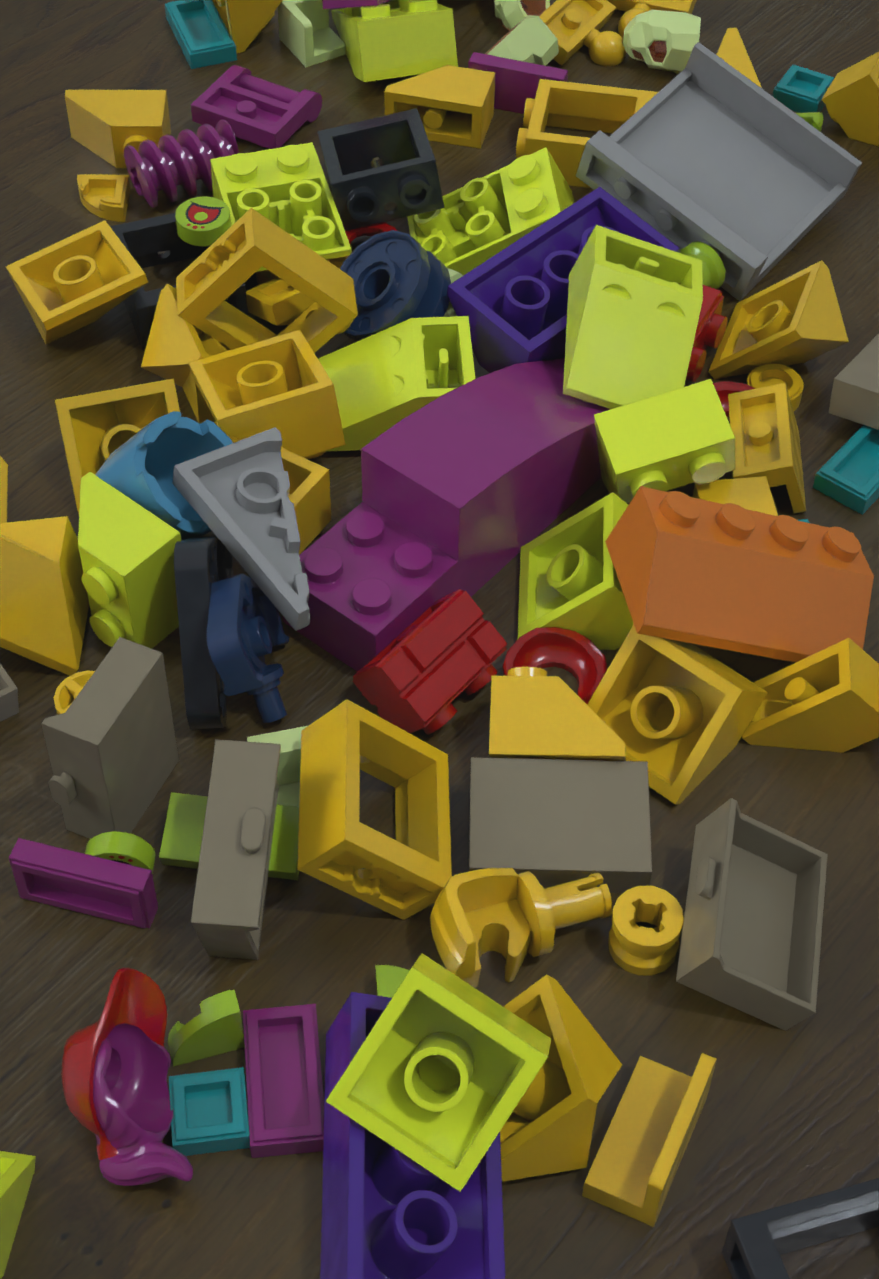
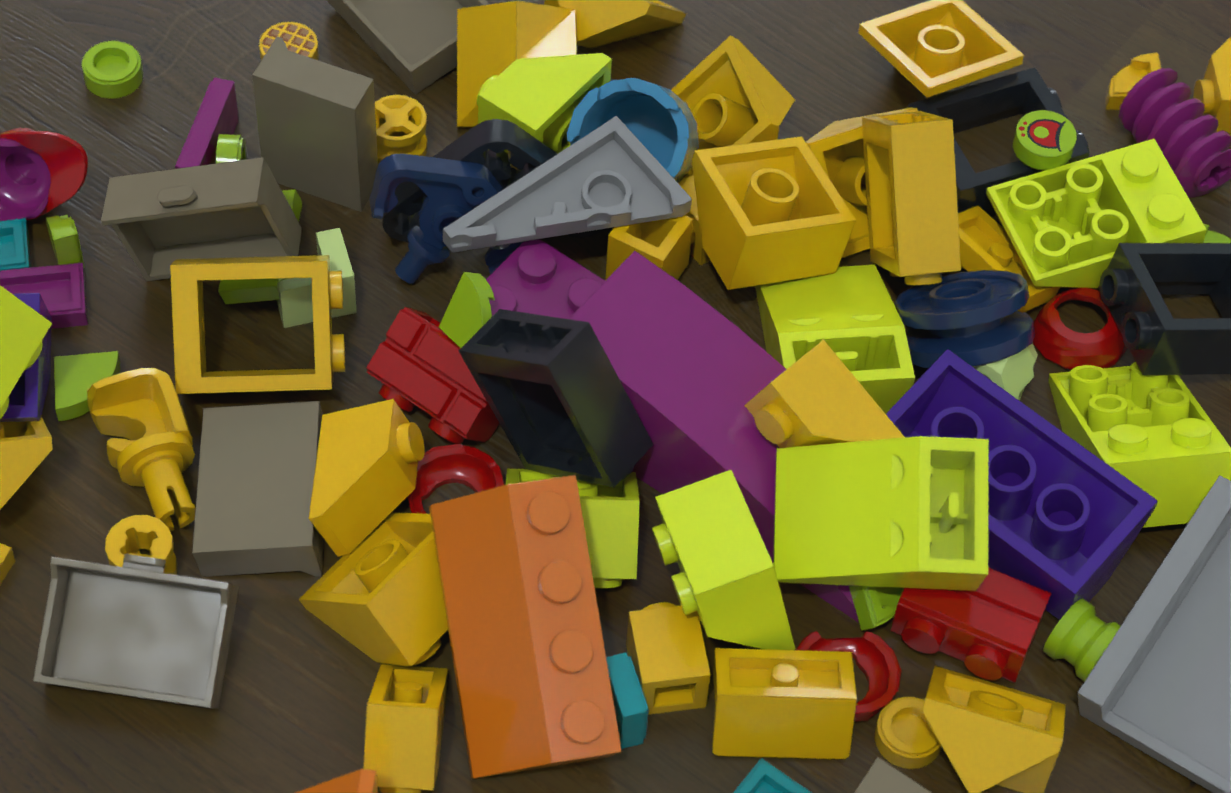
camera: 85 degrees right, 5 degrees up
(407, 600) = (468, 308): none -> lime tile
(500, 565) = (518, 362): none -> black window
(526, 353) = (818, 405): none -> yellow slope

